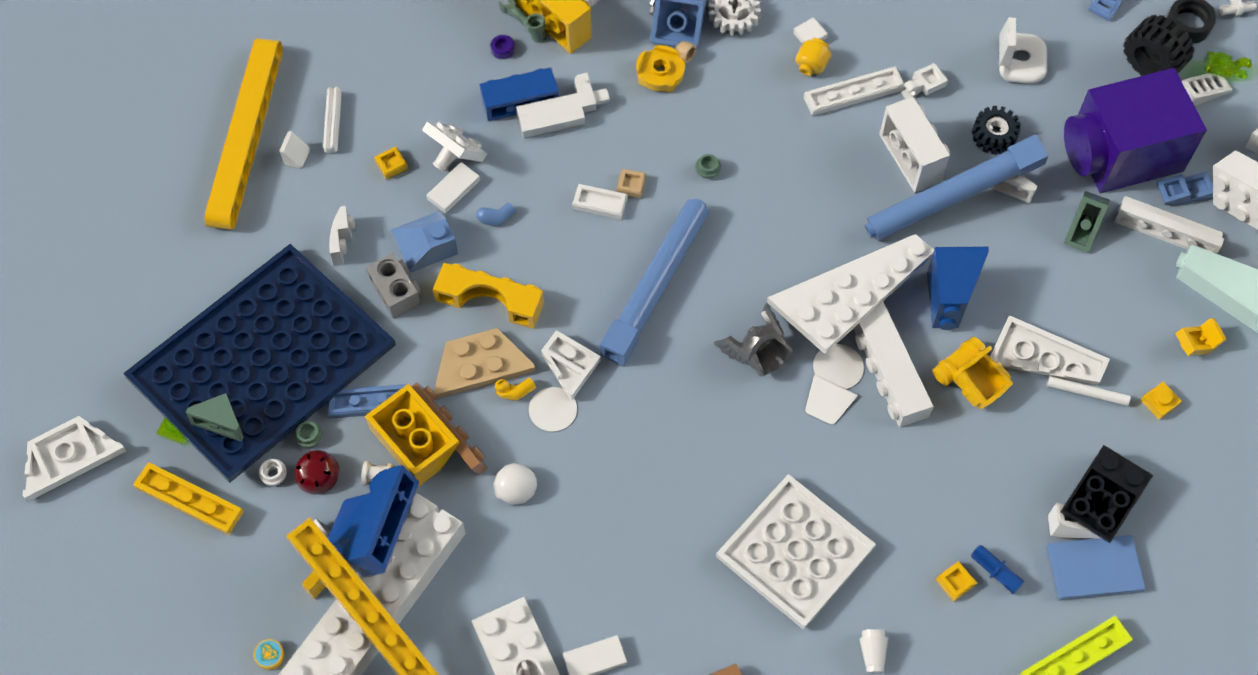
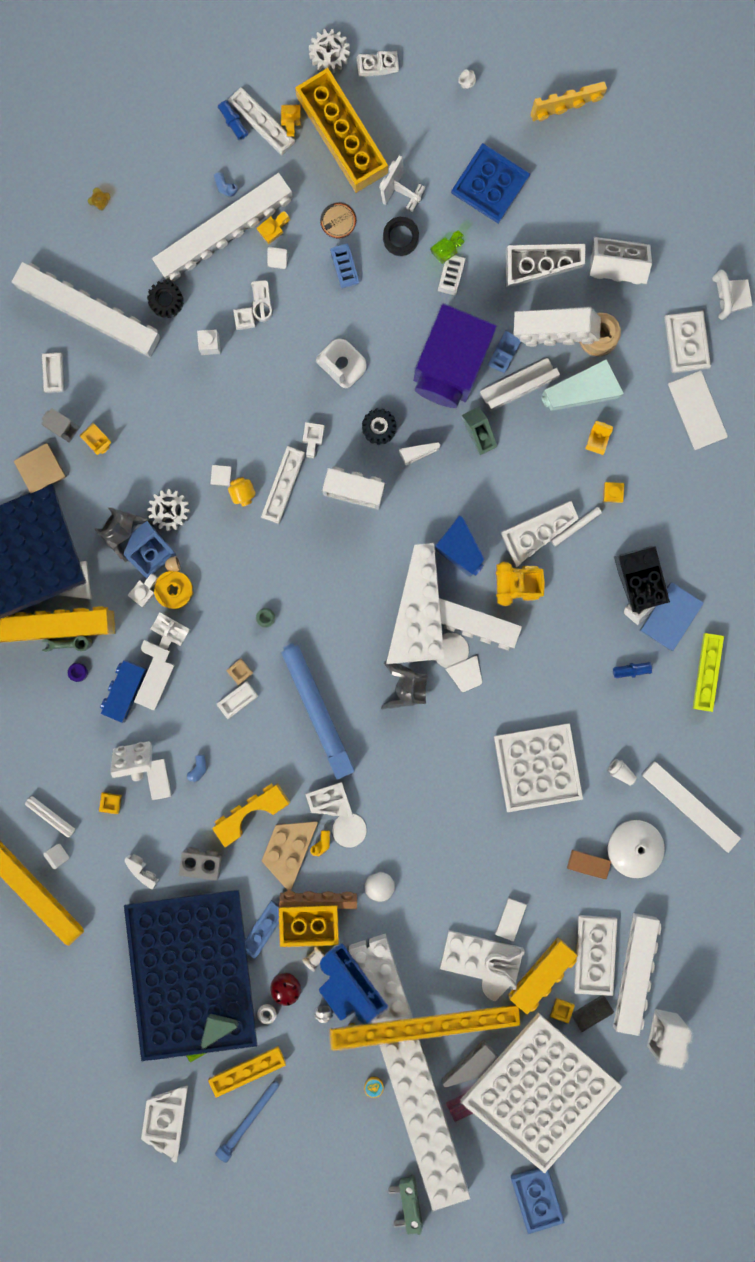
camera: 55 degrees left, 25 degrees up
(71, 543) = (224, 1152): none -> medium blue piece
(308, 434) = (258, 978): sand green plate -> none
(425, 241) = (181, 822): medium blue slope -> none
(619, 90) = (170, 629): none -> white hips
(632, 45) = (143, 591): none -> white plate
(956, 581) = (620, 696): yellow tile -> none
(1016, 161) = (417, 444): medium blue brick -> none
(1158, 46) = (410, 283): black tyre -> none

